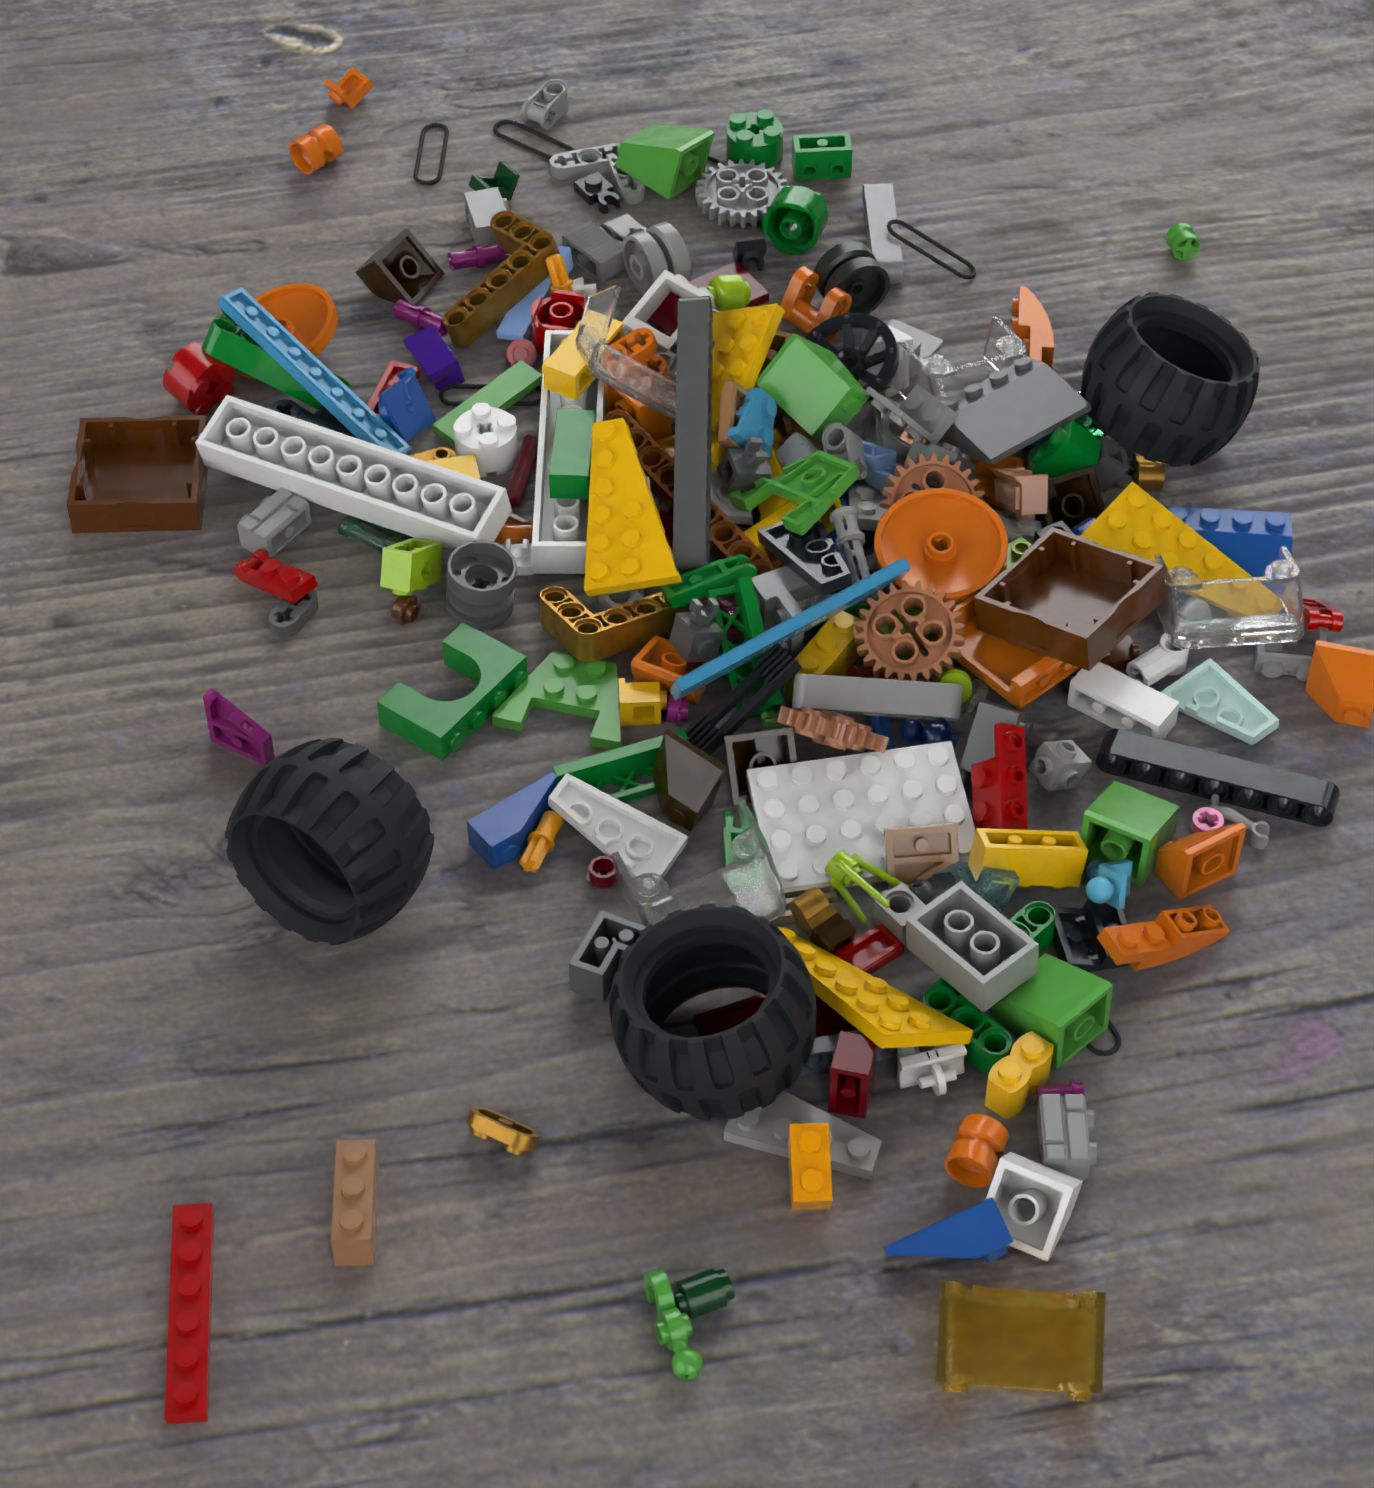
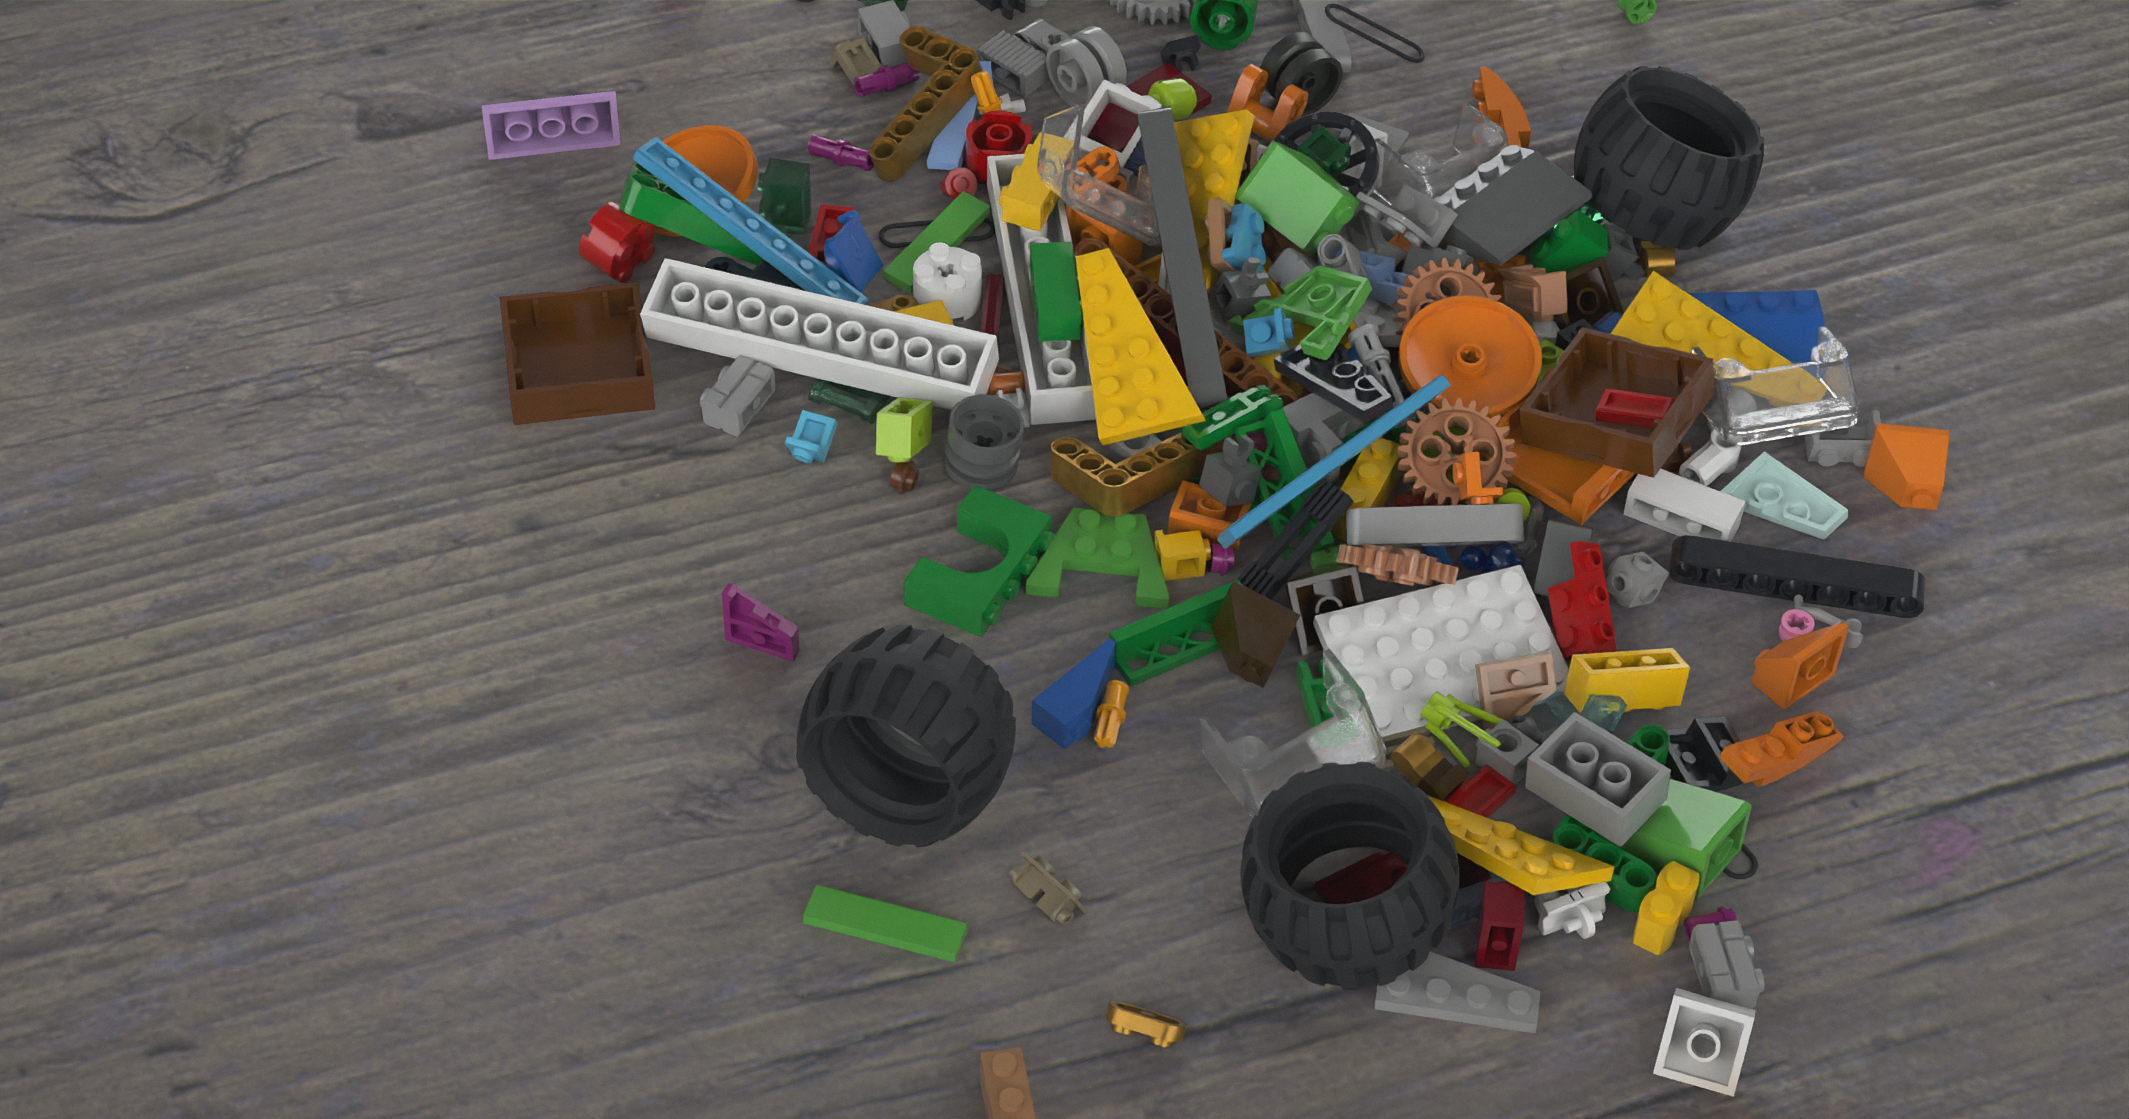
camera: 10 degrees left, 0 degrees up
(168, 272) = (551, 125): none -> lavender slope
(275, 577) = (754, 454): red plate -> none
(288, 1012) = (885, 923): none -> bright green tile
(297, 613) = (776, 488): dark grey beam -> none
(331, 566) = (811, 437): none -> medium azure bracket
(358, 351) = (786, 195): none -> clear green brick
(400, 270) = (806, 101): dark brown slope -> none
(434, 357) = (868, 195): dark purple hinge -> none
(452, 1006) = (1037, 877): none -> dark tan hinge
(453, 235) = (855, 58): none -> dark tan bracket
(599, 954) = (1216, 822): dark grey brick -> none
(601, 872) = (1184, 740): dark red plate -> none
(615, 826) = (1189, 690): white wing -> none
(758, 508) = (1268, 334): none -> dark azure bracket
(810, 1166) = (1477, 1025): light orange brick -> none
(849, 348) = (1326, 151): none -> dark green bracket
(911, 653) = (1468, 475): none -> orange bracket
(966, 1234) = (1652, 1076): blue slope -> none
(976, 1150) = (1640, 990): orange wheel -> none
(1080, 604) = (1632, 407): none -> red tile
(1109, 882) = (1713, 697): medium azure piece -> none
(1128, 826) = (1721, 642): bright green slope -> none
(1320, 614) = (1875, 397): red plate -> none

